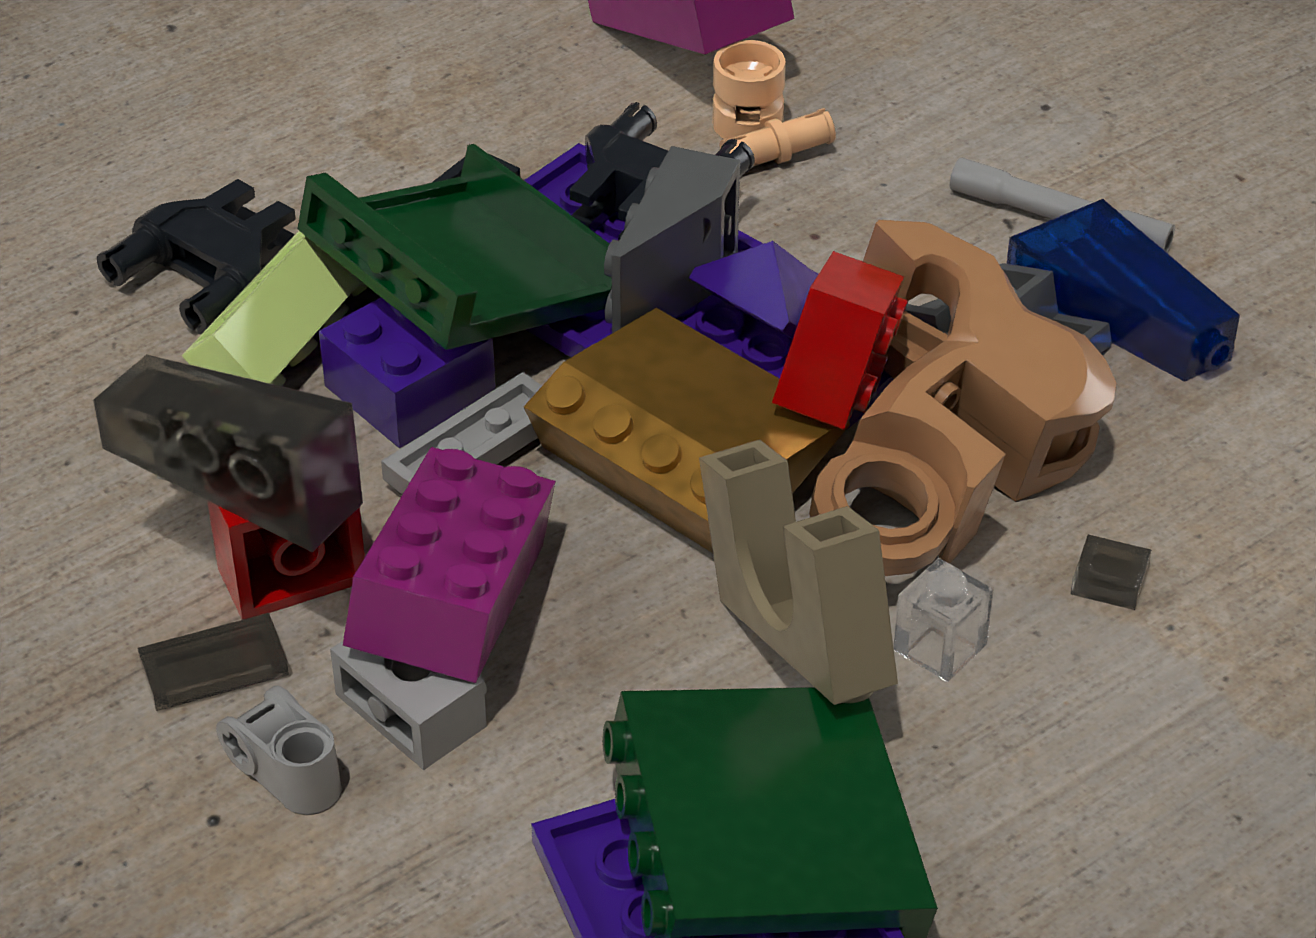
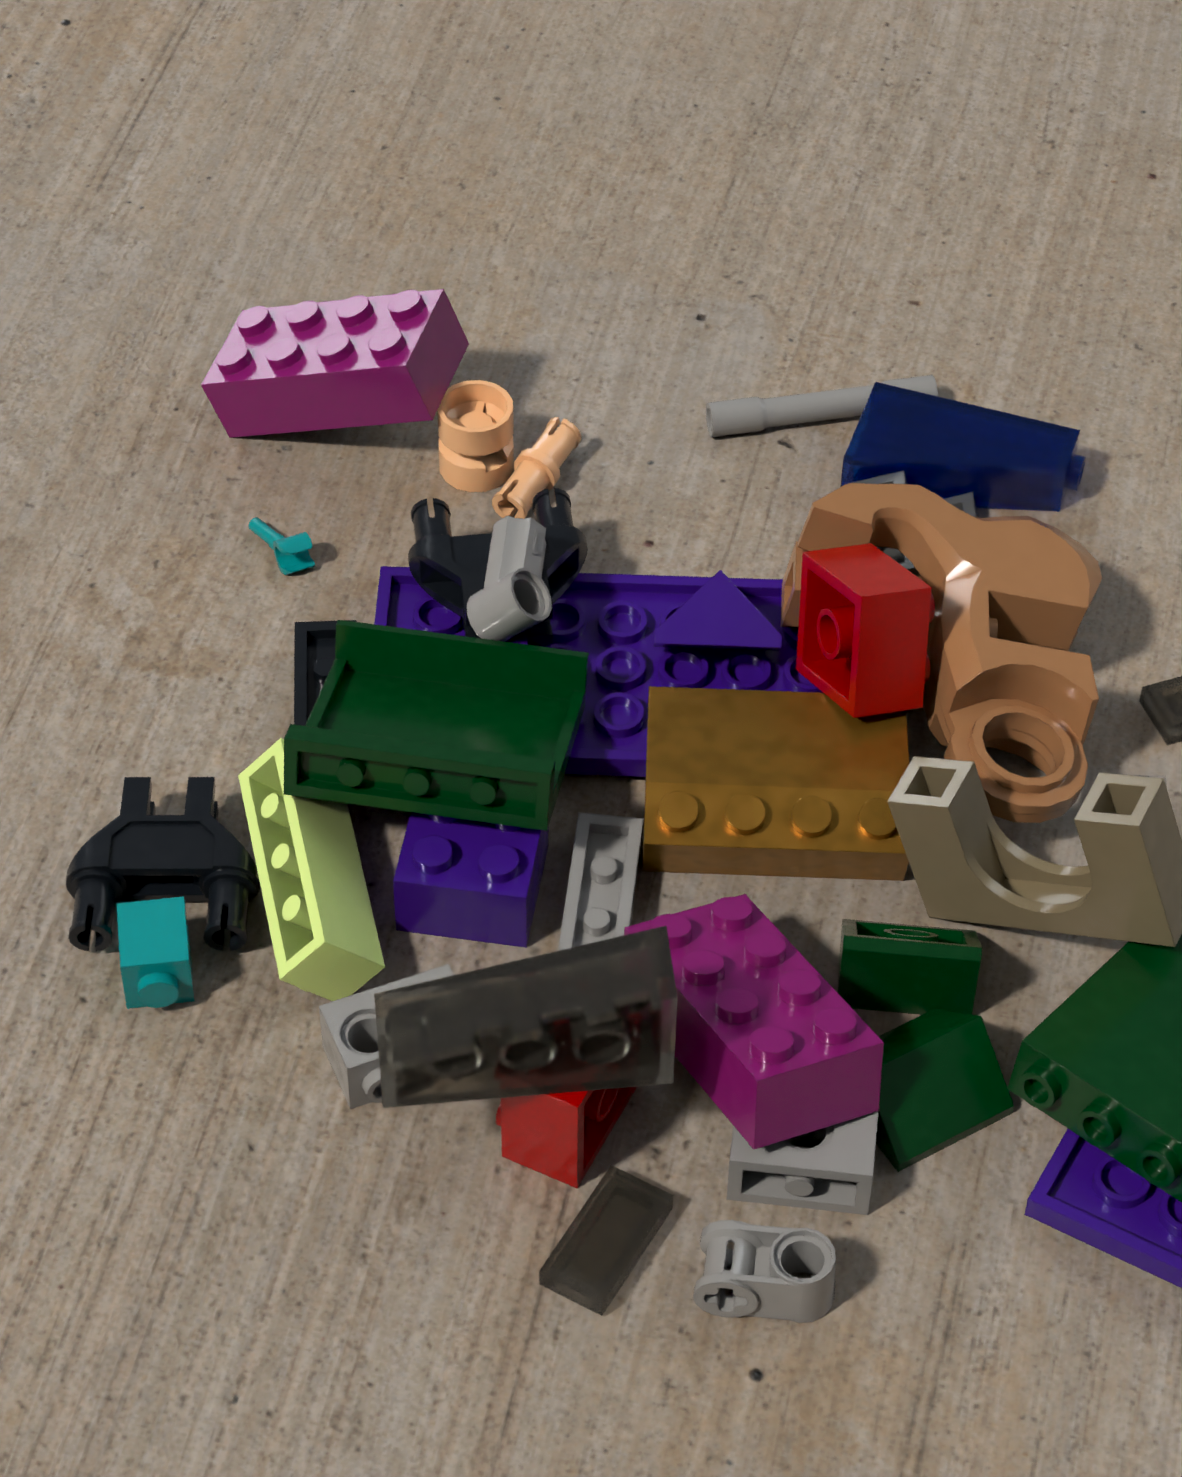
camera: 40 degrees left, 5 degrees up
(136, 300) = (155, 952): none -> teal brick
(542, 108) = (290, 552): none -> teal hand
(552, 705) = (937, 1085): none -> dark green slope
(615, 173) = (513, 587): none -> light grey piece
(645, 614) = (908, 967): none -> dark green slope
(680, 224) = (610, 610): dark grey slope -> none

